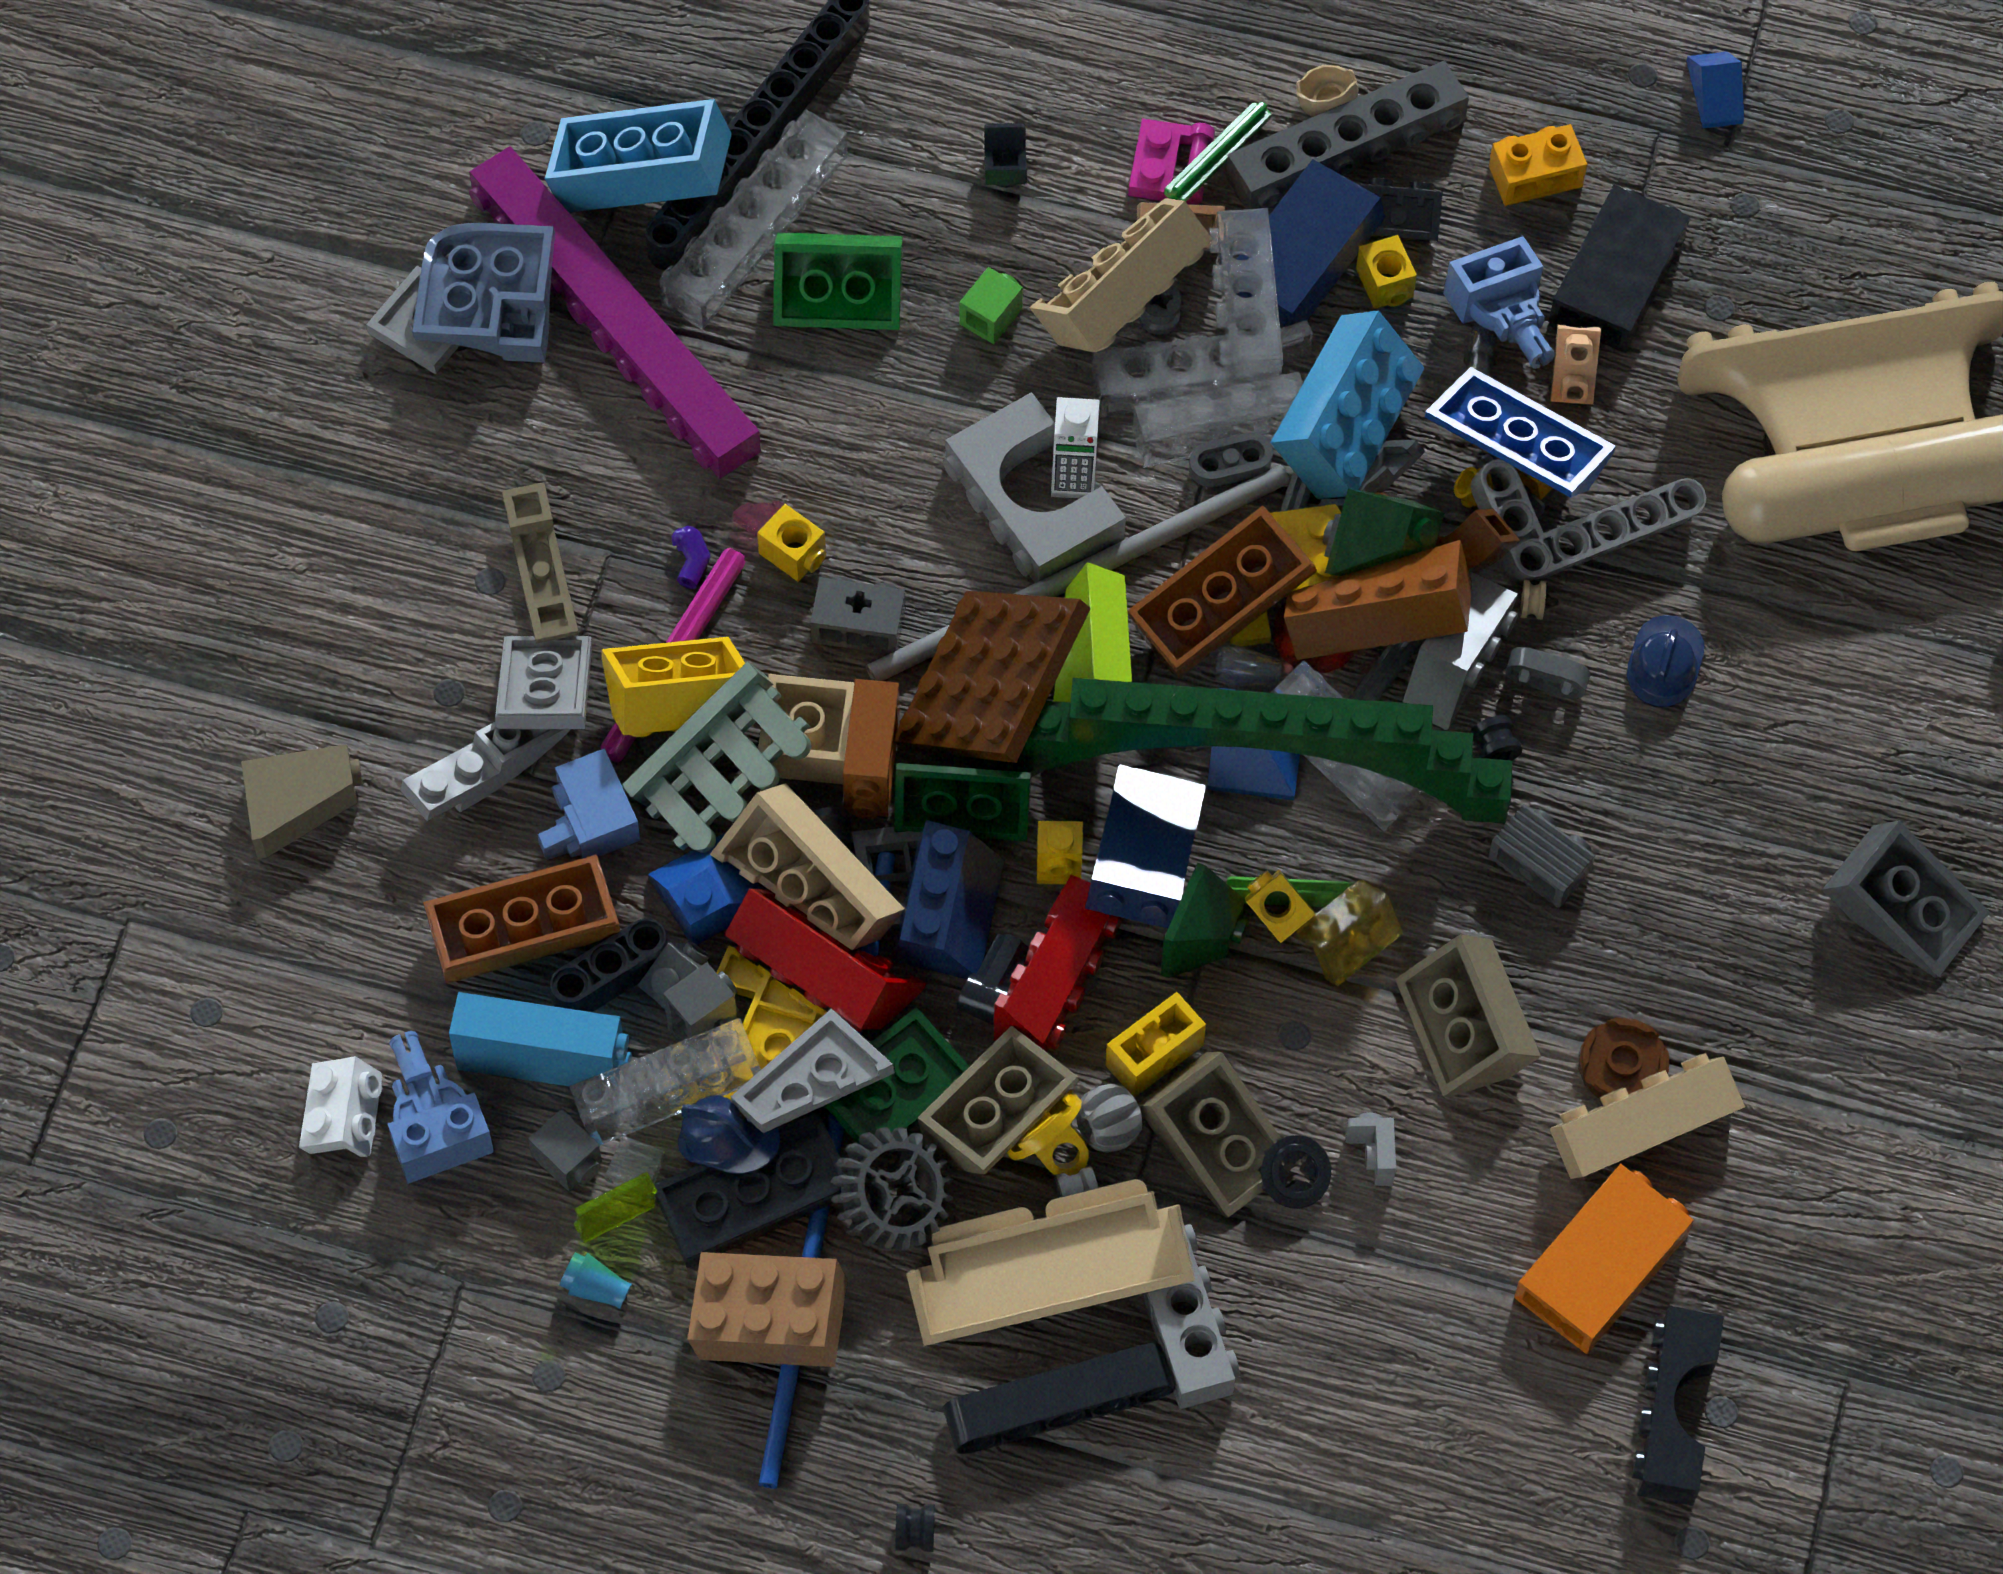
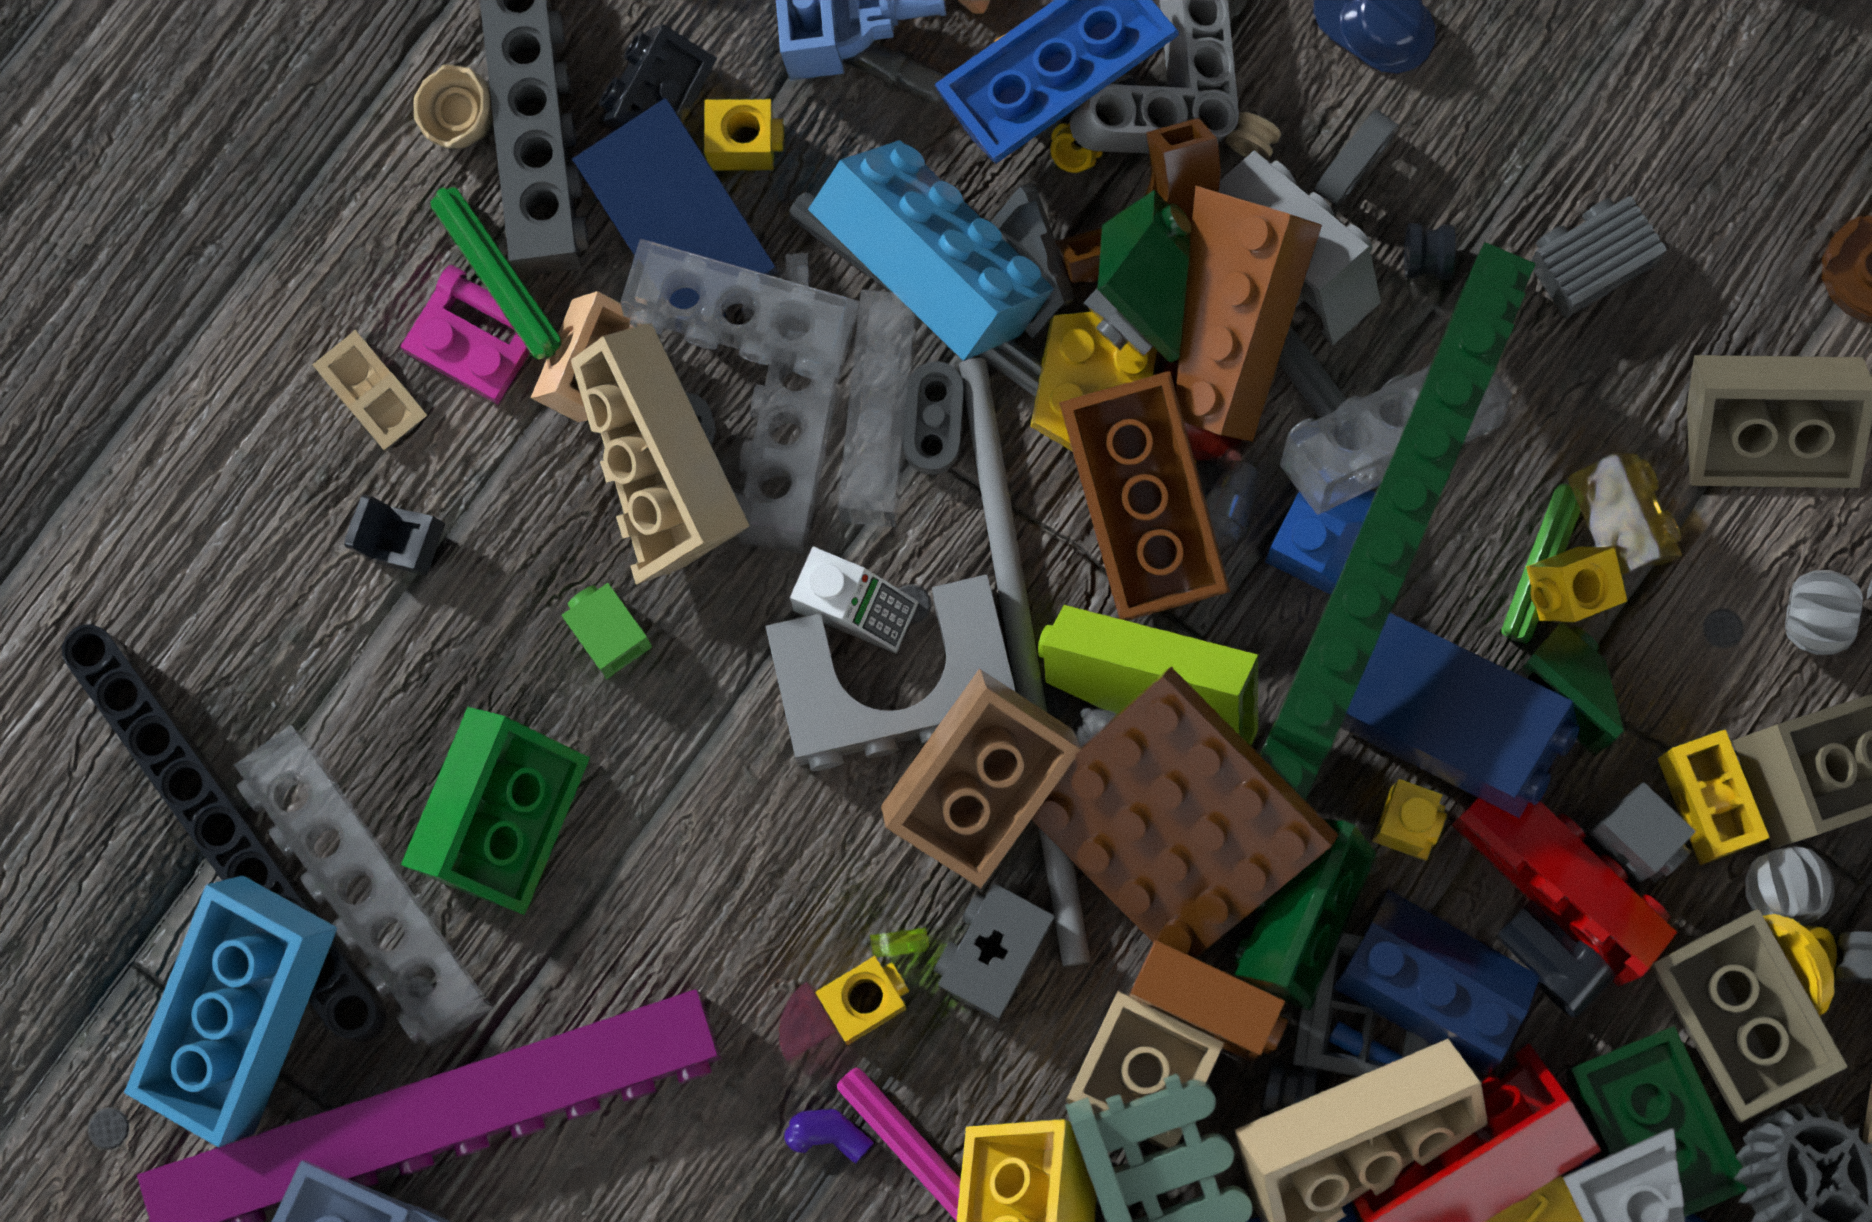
camera: 65 degrees left, 15 degrees up
(842, 554) = (899, 942): none -> clear neon green tile
(973, 549) = (980, 778): none -> medium nougat brick
(1105, 112) = (369, 390): none -> tan slope
(1105, 997) = (1642, 835): none -> dark grey brick
(1330, 1086) = (1823, 612): none -> light grey piece

